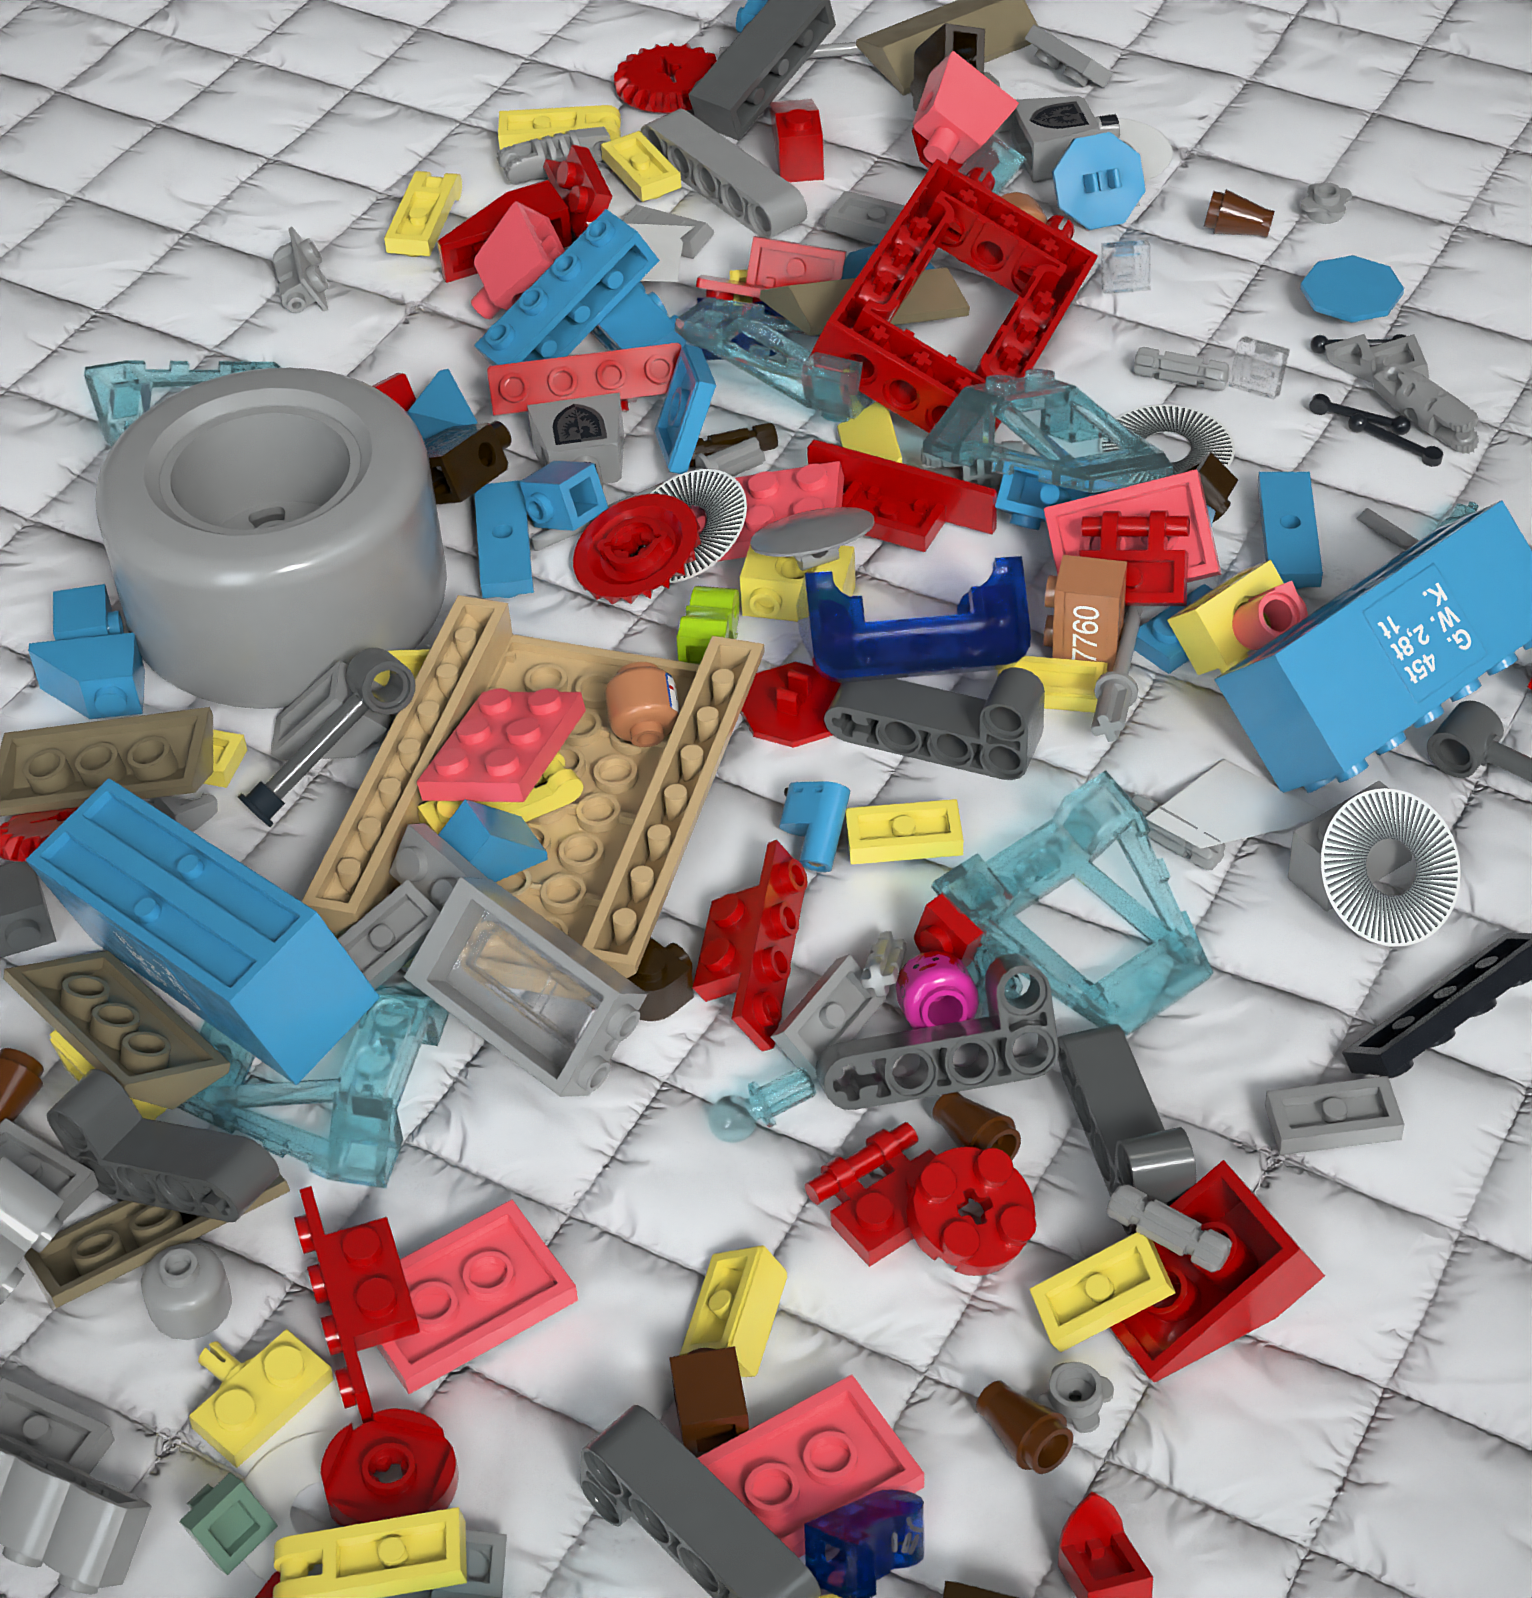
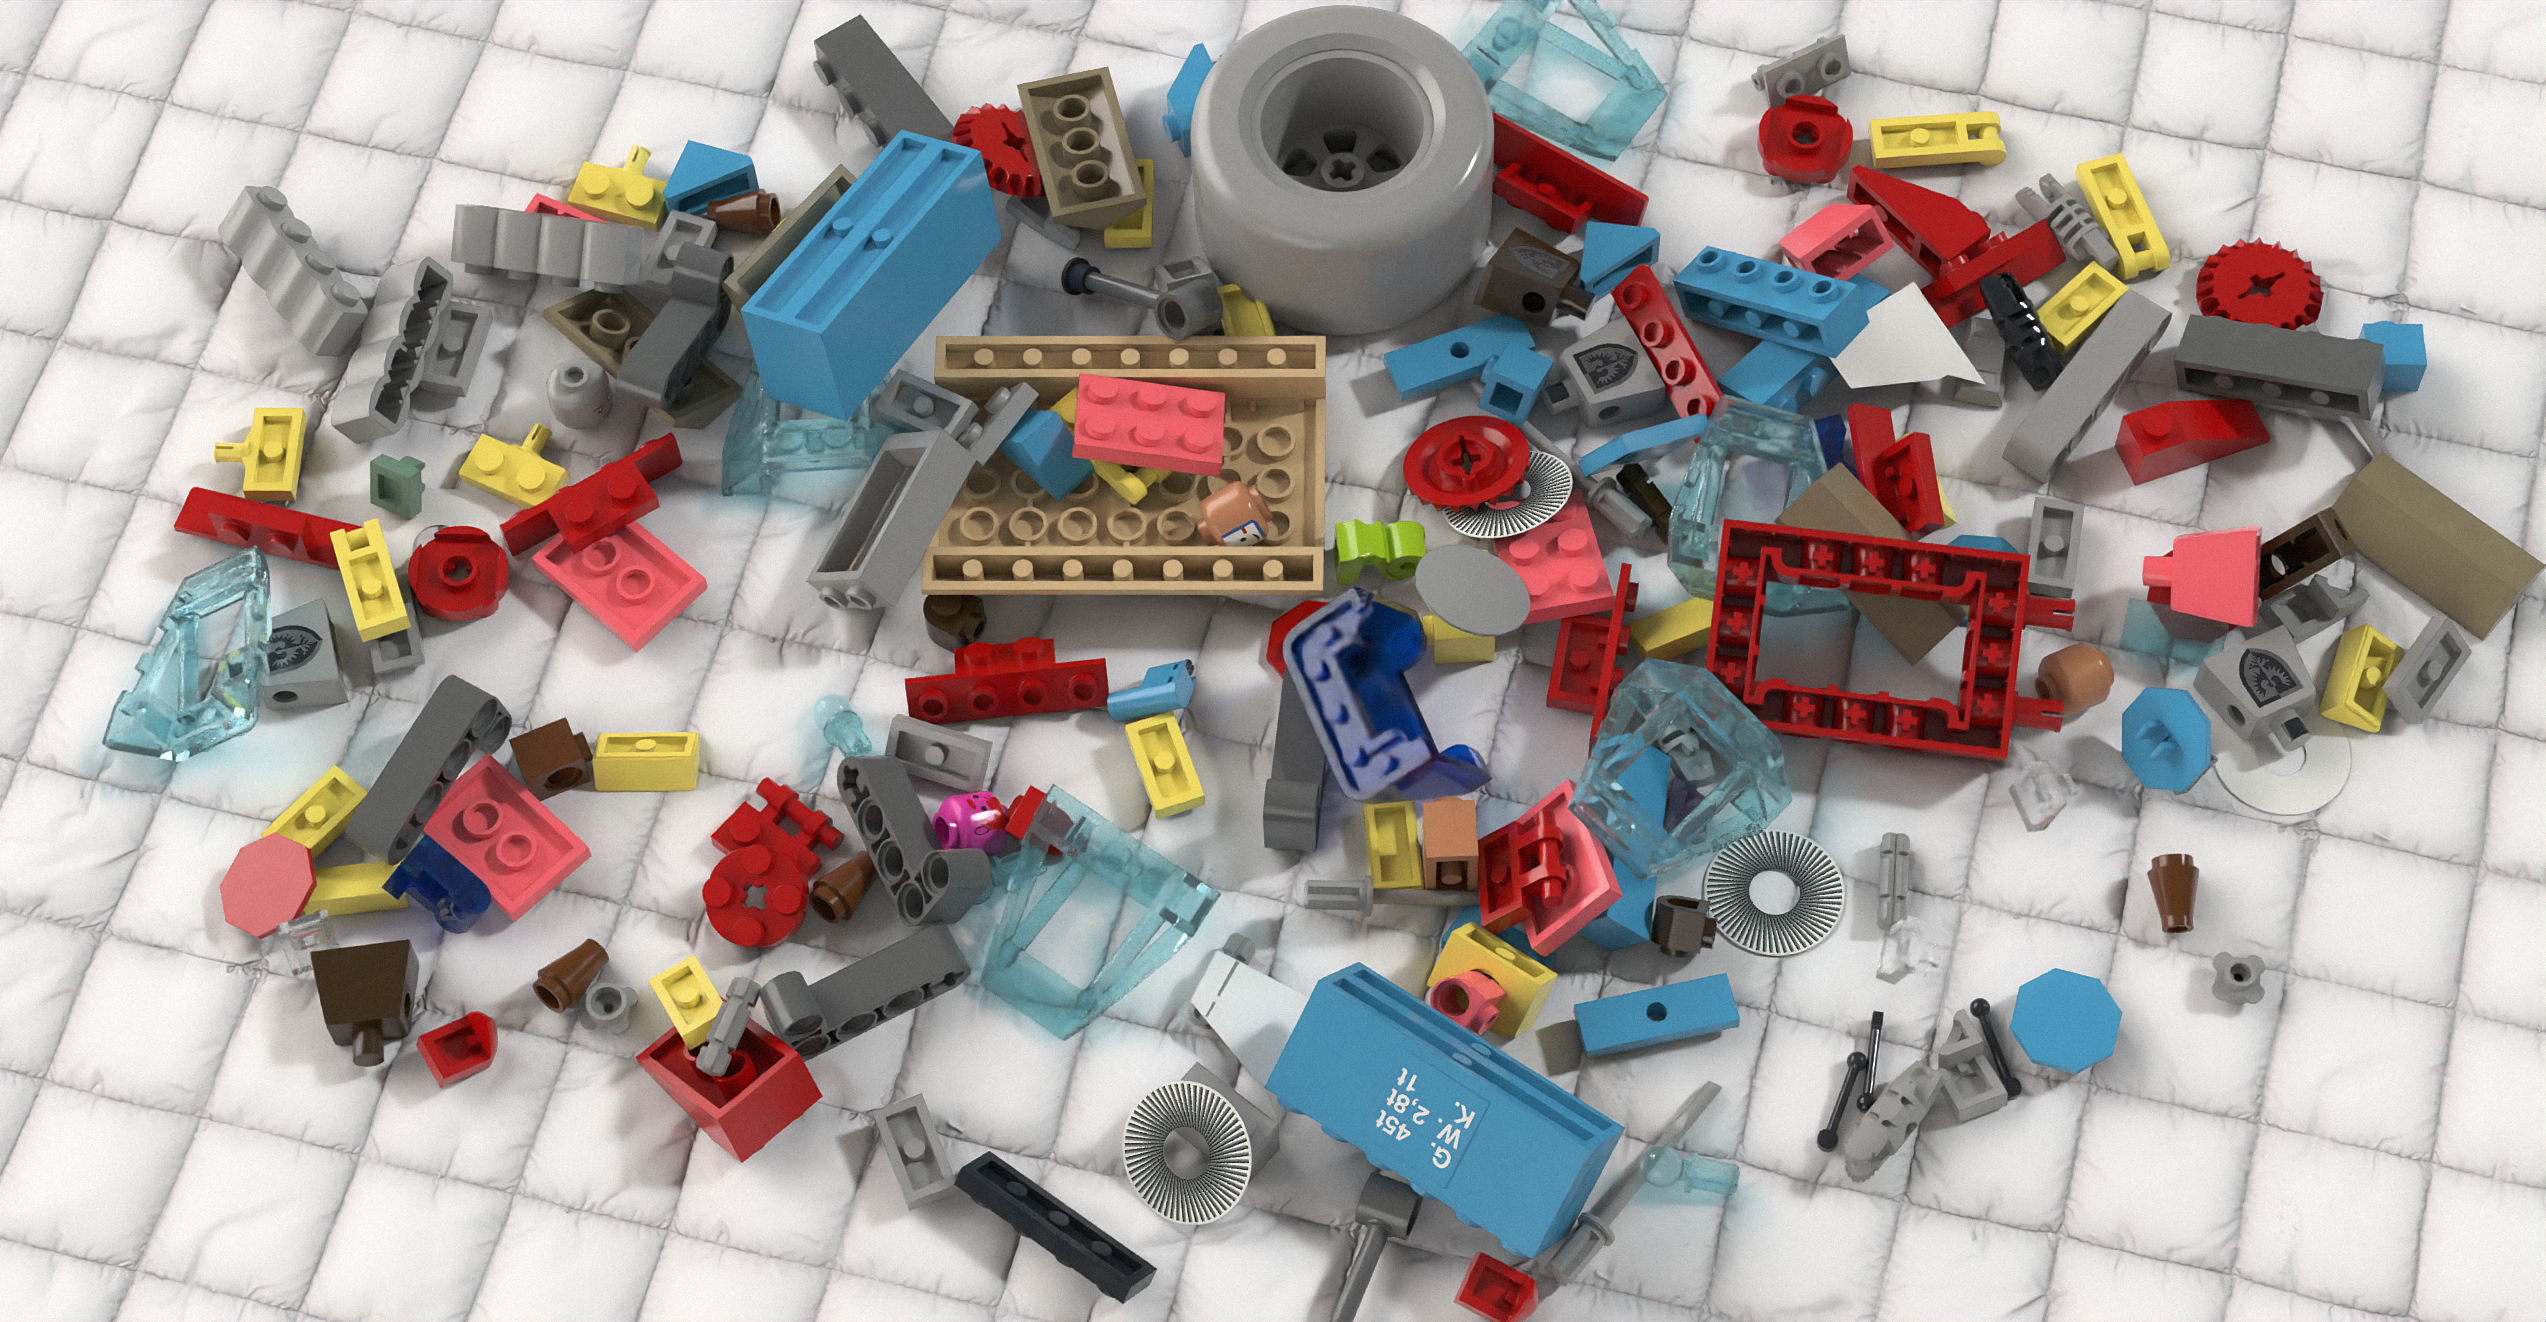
camera: 75 degrees right, 15 degrees up
(378, 286) = (1801, 162): none -> red plate
(659, 189) = (2021, 330): none -> black hinge
(883, 964) = (992, 777): light grey axle -> none
(1040, 85) = (2357, 676): none -> light yellow slope

